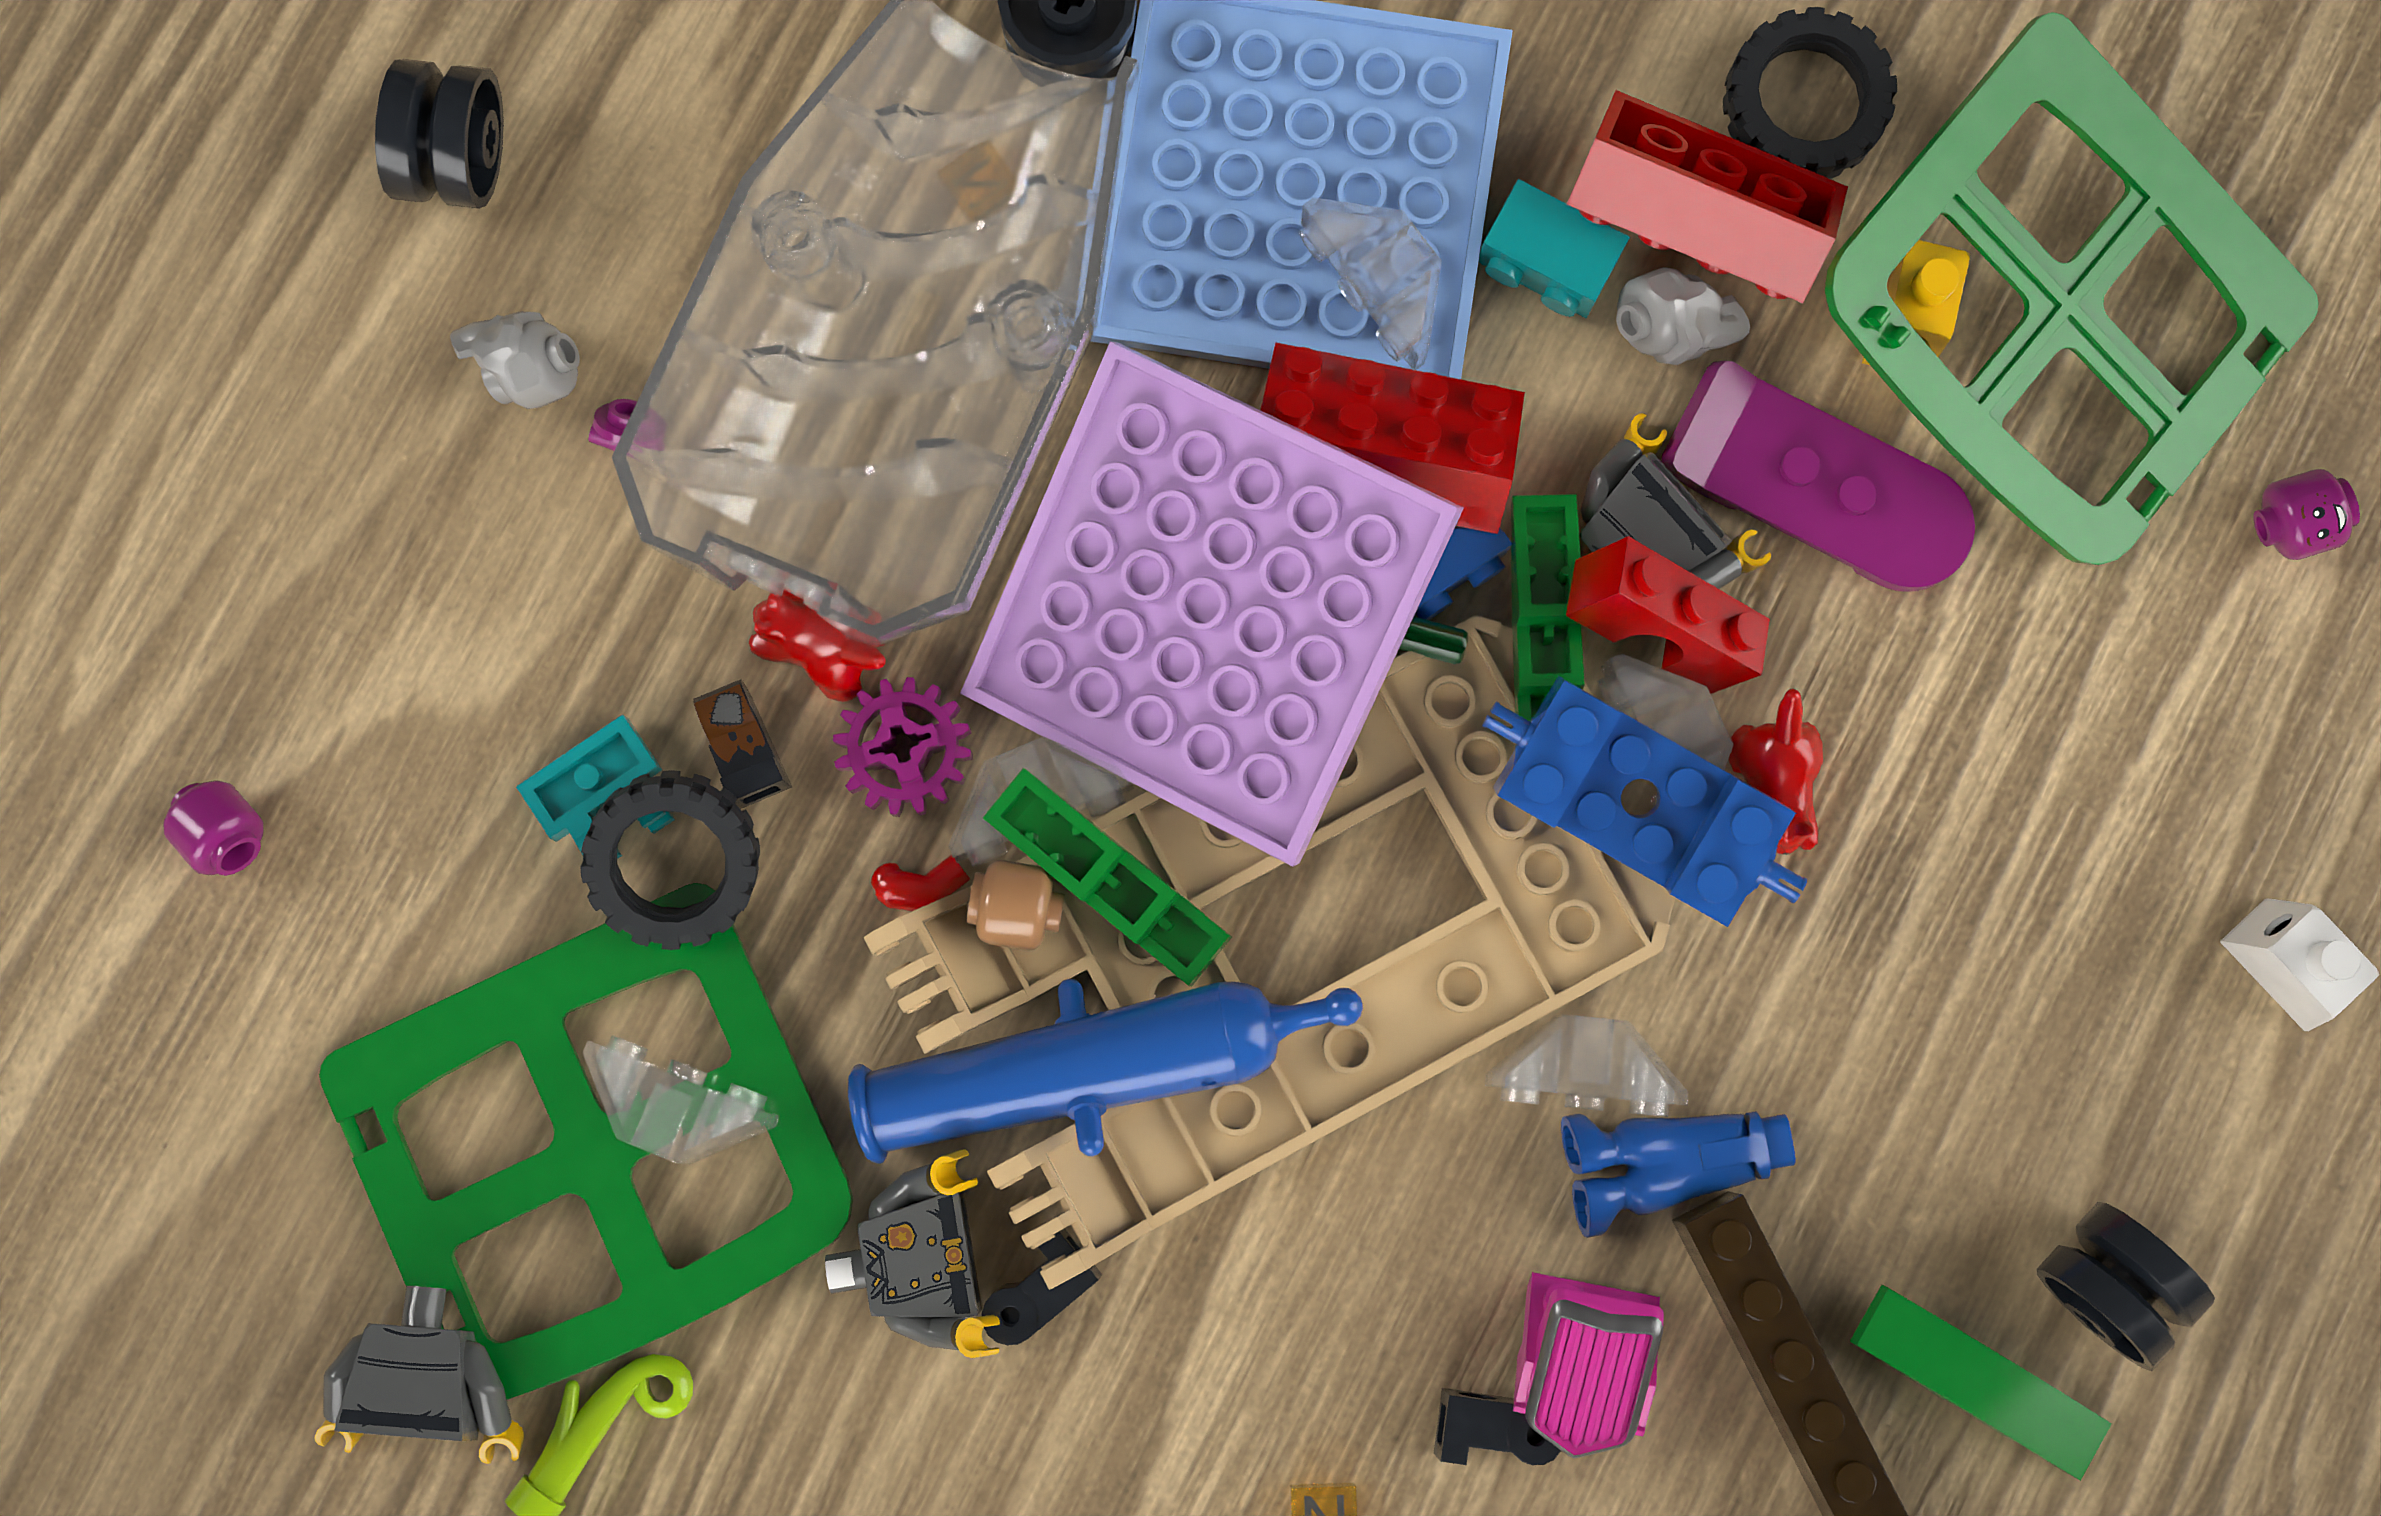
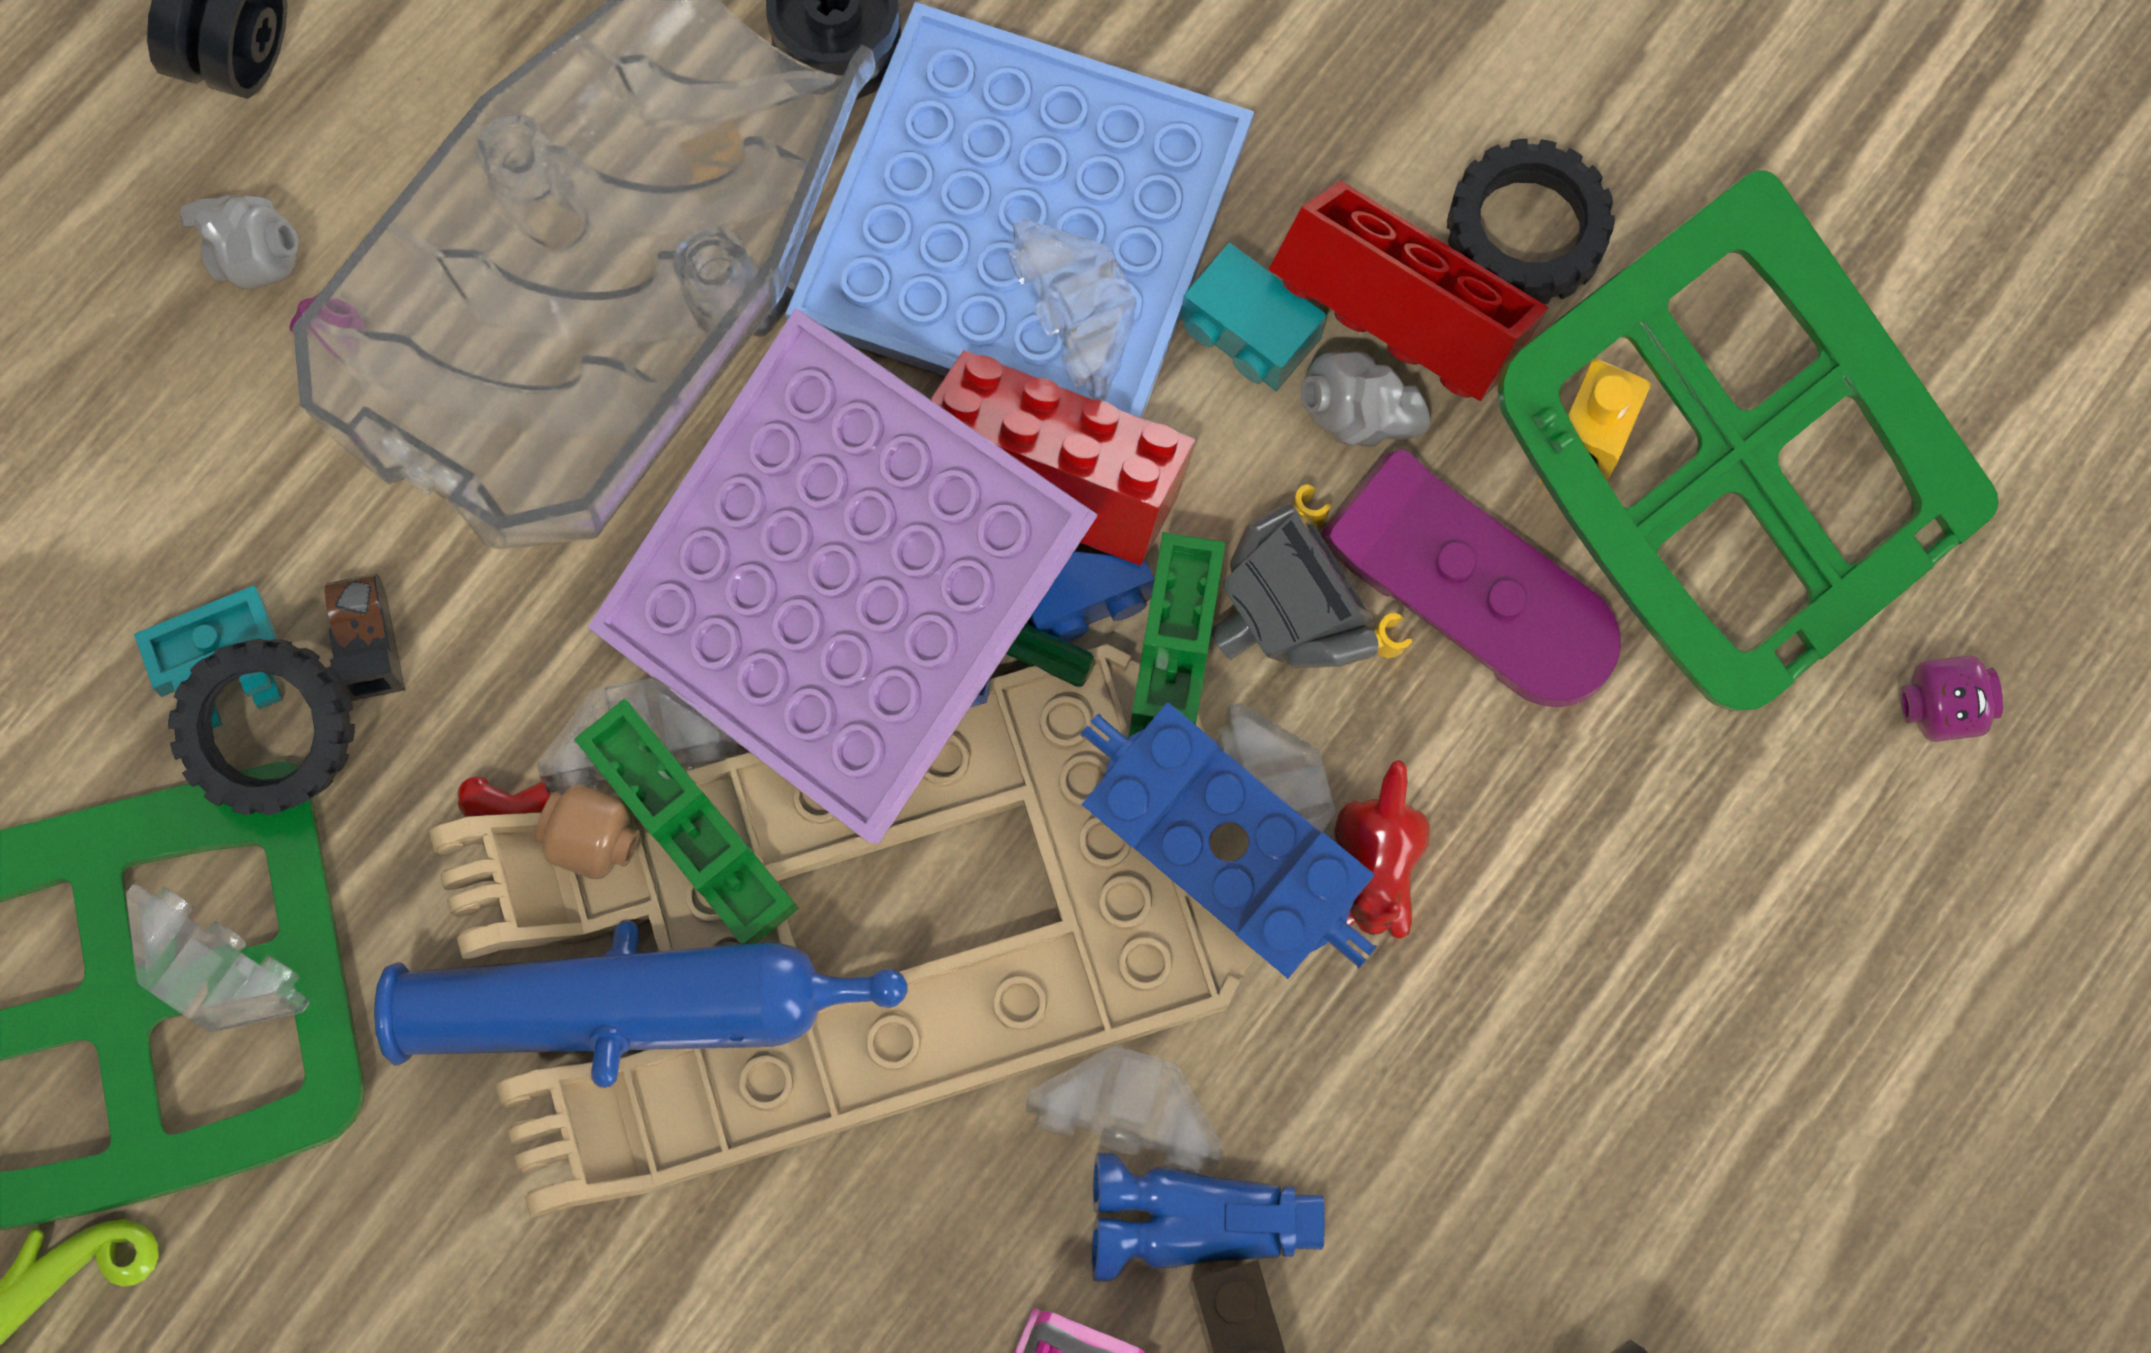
camera: 10 degrees right, 10 degrees down
(799, 636) = (446, 544): red animal -> none
(895, 720) = (513, 643): magenta gear -> none
(919, 1260) = (414, 1169): dark grey torso -> none
(1030, 1304) = (515, 1240): black leg -> none
(1639, 592) = (1264, 639): red arch -> none
(2305, 965) = (1878, 1138): white torso -> none

